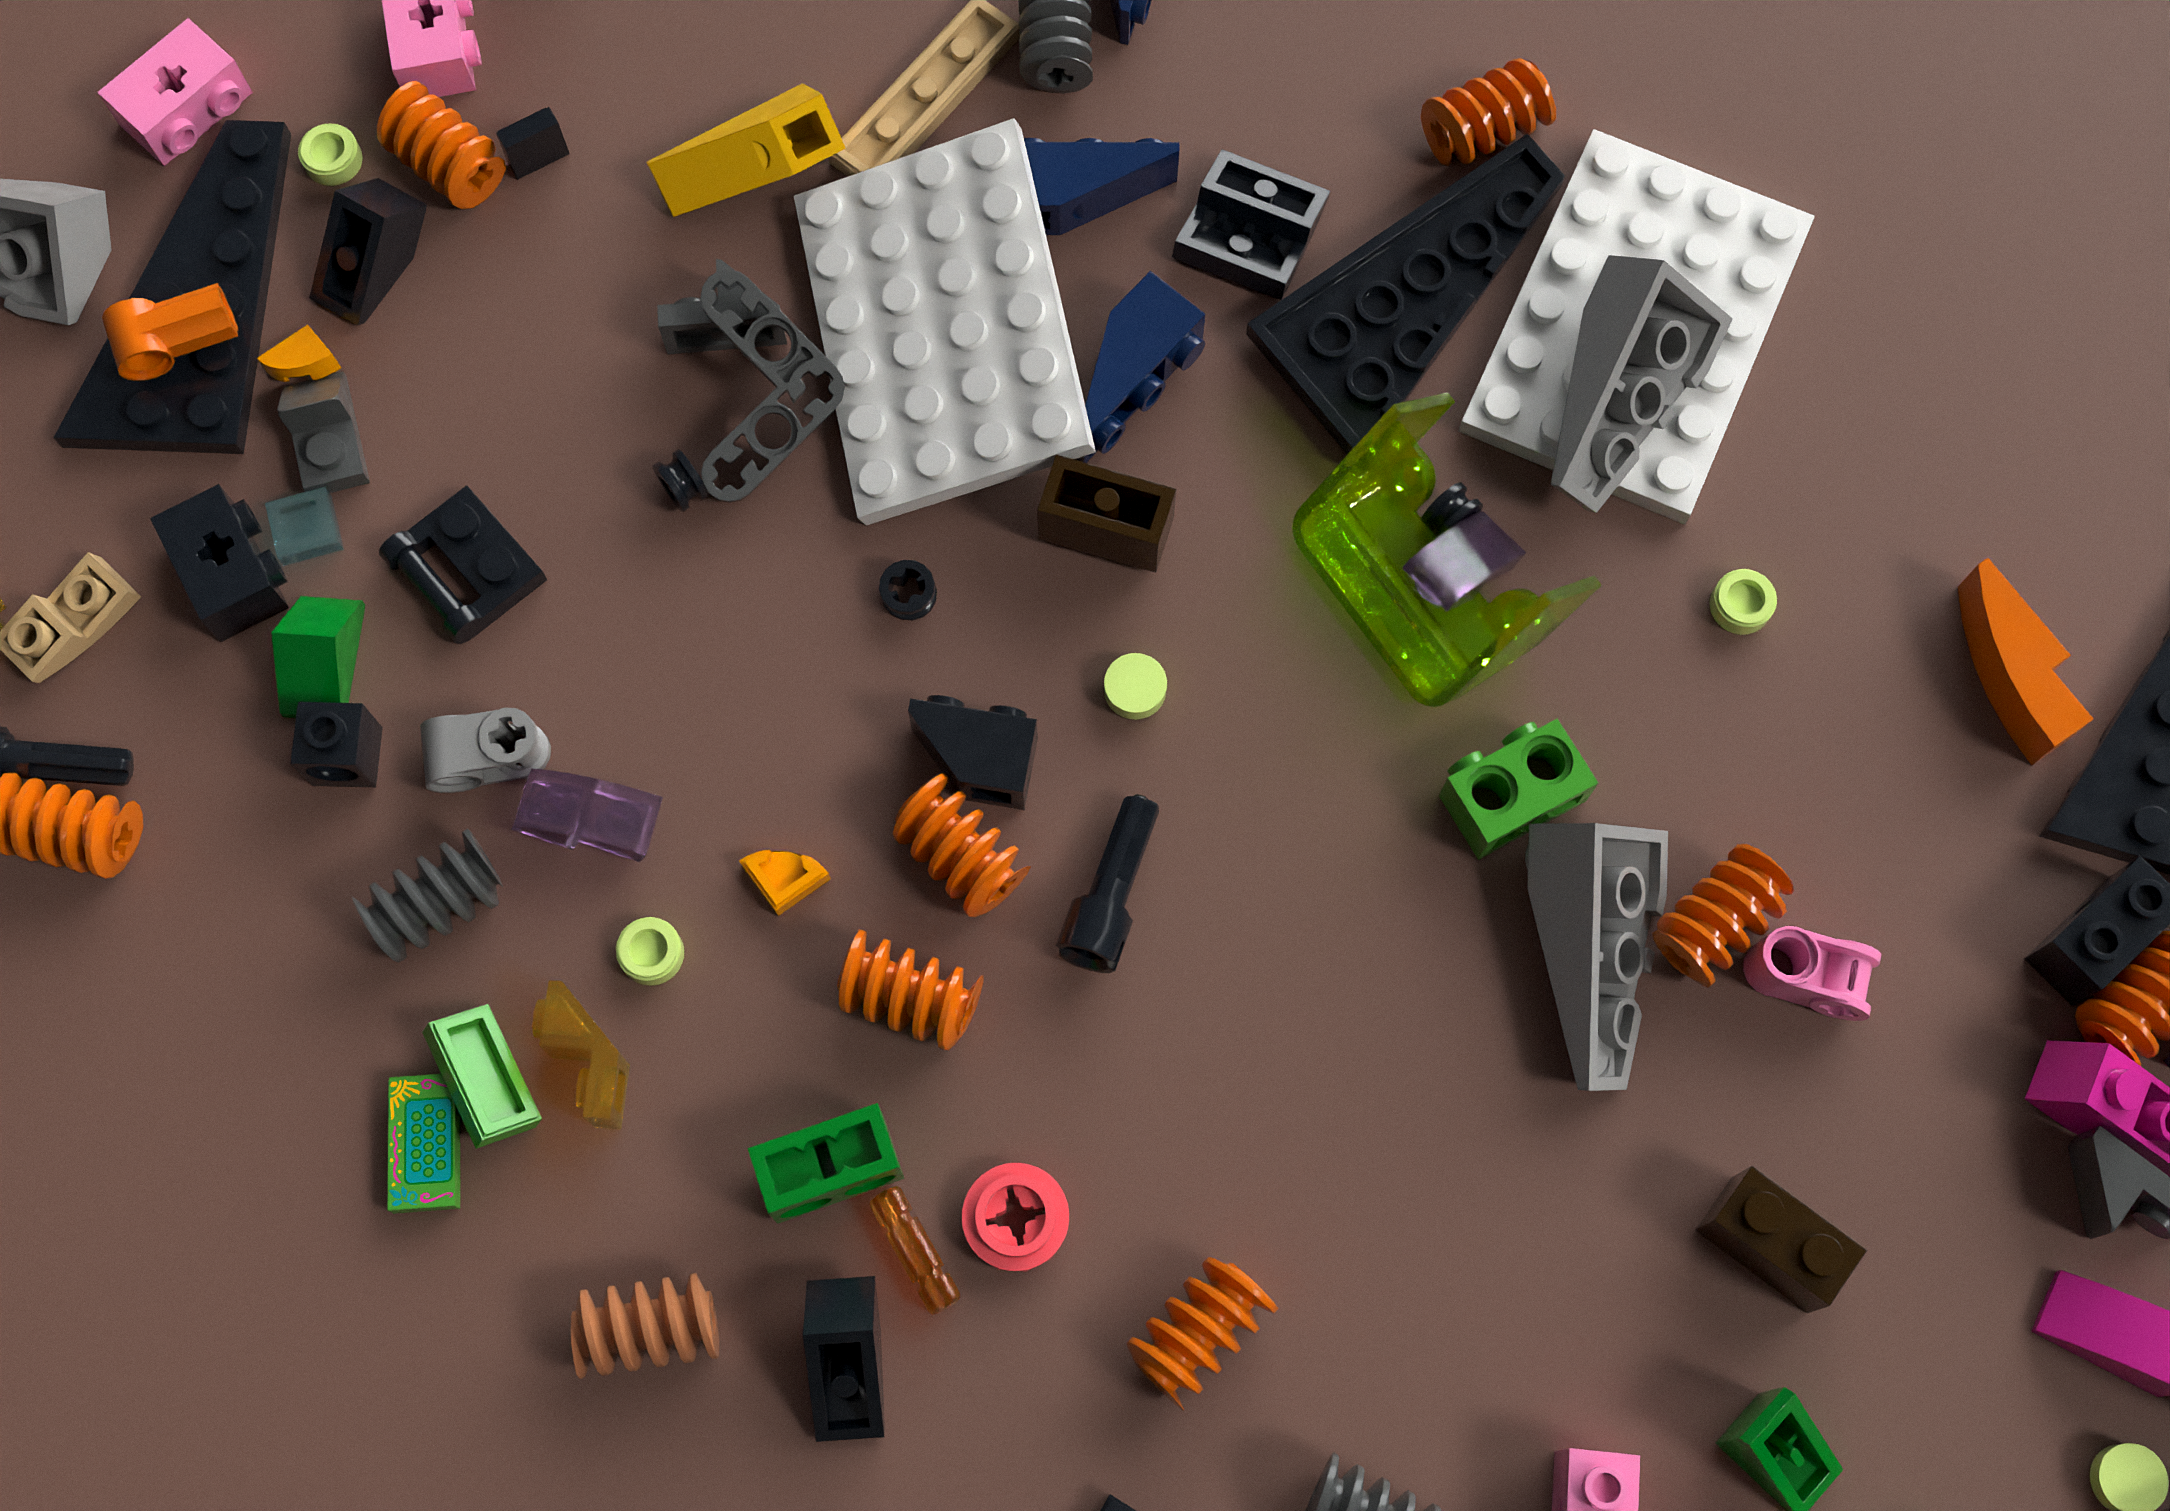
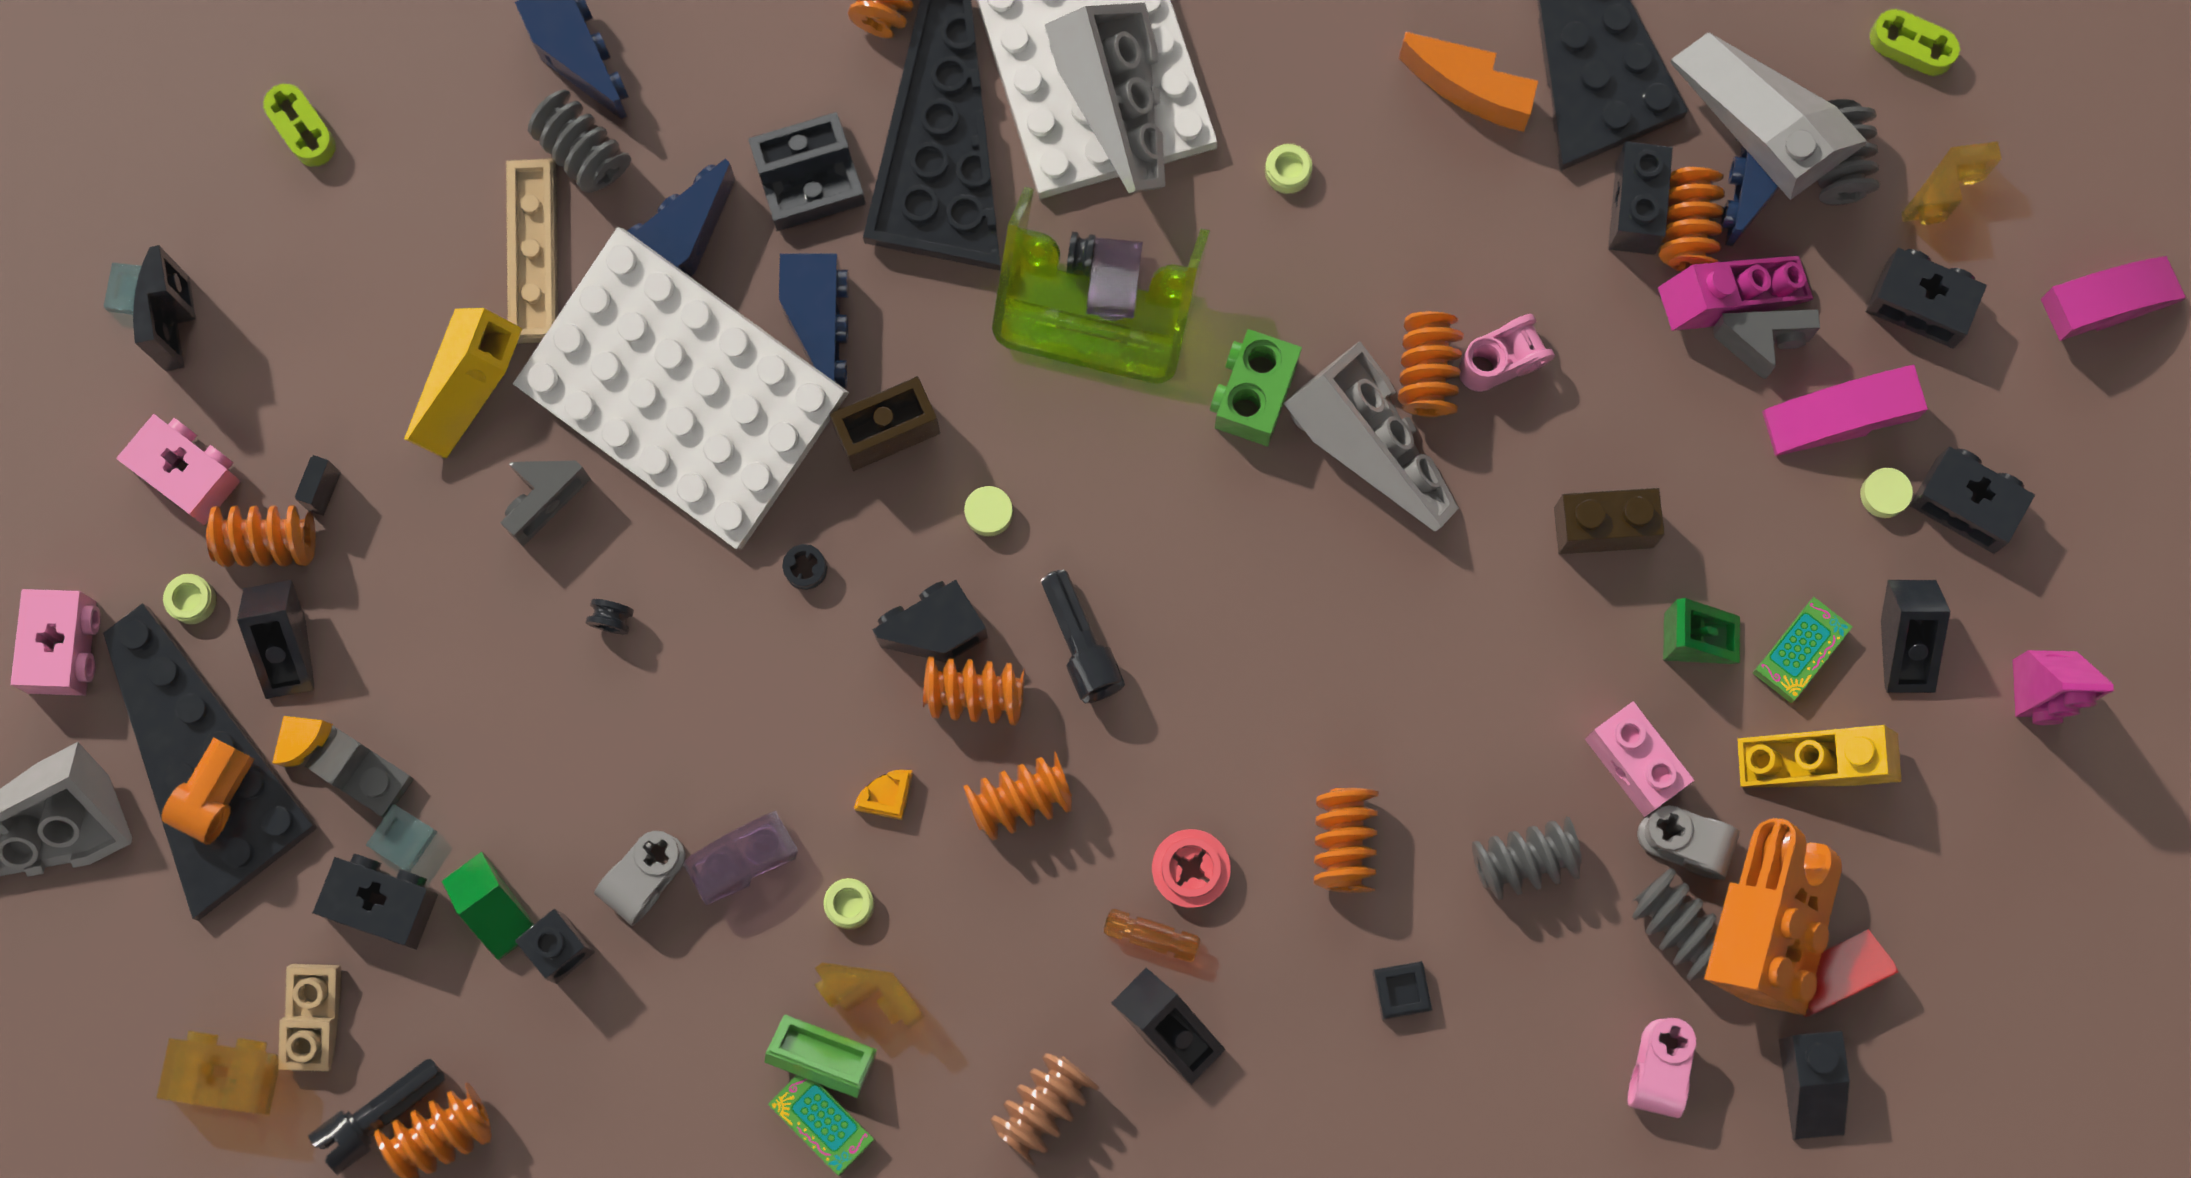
camera: 40 degrees left, 5 degrees up
(430, 898) = (696, 982): dark grey piece -> none
(478, 550) = (525, 762): black plate -> none
(783, 374) = (617, 500): dark grey beam -> none
(825, 1163) = (1064, 930): green brick -> none

